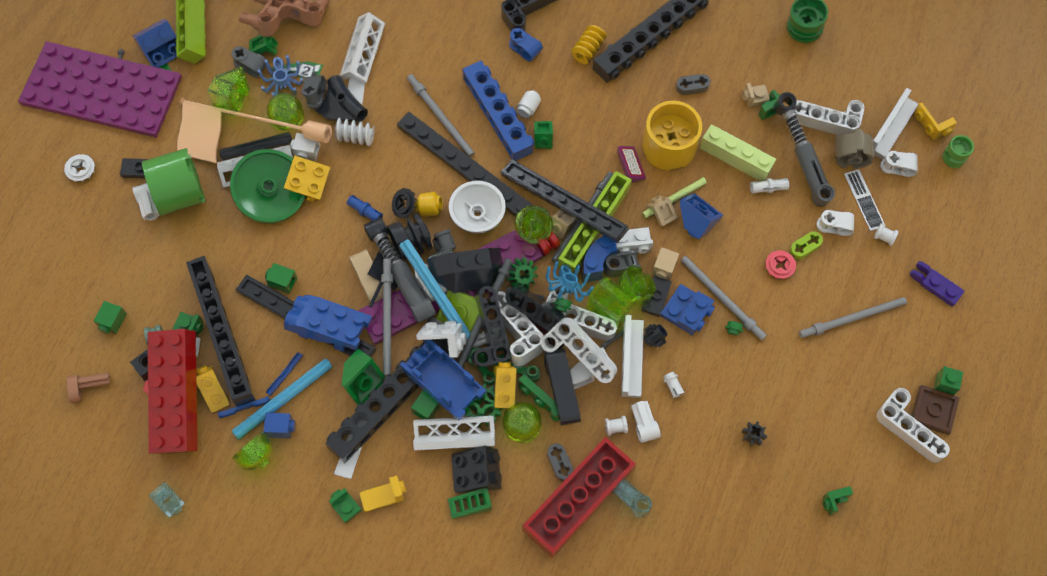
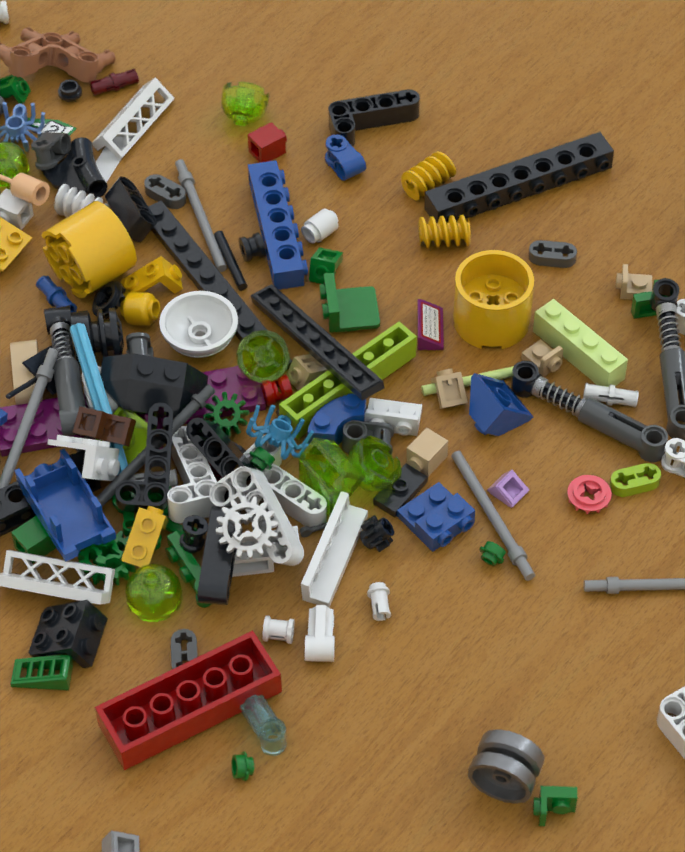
camera: 20 degrees right, 15 degrees down
(307, 36) = (69, 90): none -> black plate
(336, 20) = (114, 82): none -> dark red pin
(379, 169) = (89, 249): none -> yellow brick
(391, 125) = (131, 208): none -> black beam
(408, 102) = (165, 191): none -> dark grey beam
(426, 176) = (154, 272): none -> yellow bracket
(439, 18) = (244, 102): none -> clear neon green cylinder
(447, 311) = (104, 426): none -> reddish brown slope
(466, 45) = (267, 143): none -> red brick
(476, 148) = (230, 260): none -> black bar
(487, 133) = (252, 247): none -> black wheel
(536, 376) = (188, 528): none -> black bush
(572, 163) = (348, 307): none -> green bracket
(582, 359) = (256, 535): none -> white gear
(615, 86) = (444, 231): none -> yellow piece
(629, 532) = (242, 766): none -> green plate
(714, 168) = (544, 357): none -> tan bracket
(726, 274) = (508, 488): none -> lavender slope
(753, 439) = (467, 689): black gear -> none
(762, 203) = (645, 439): none -> piece
(802, 485) = (506, 766): none -> flat silver wheel

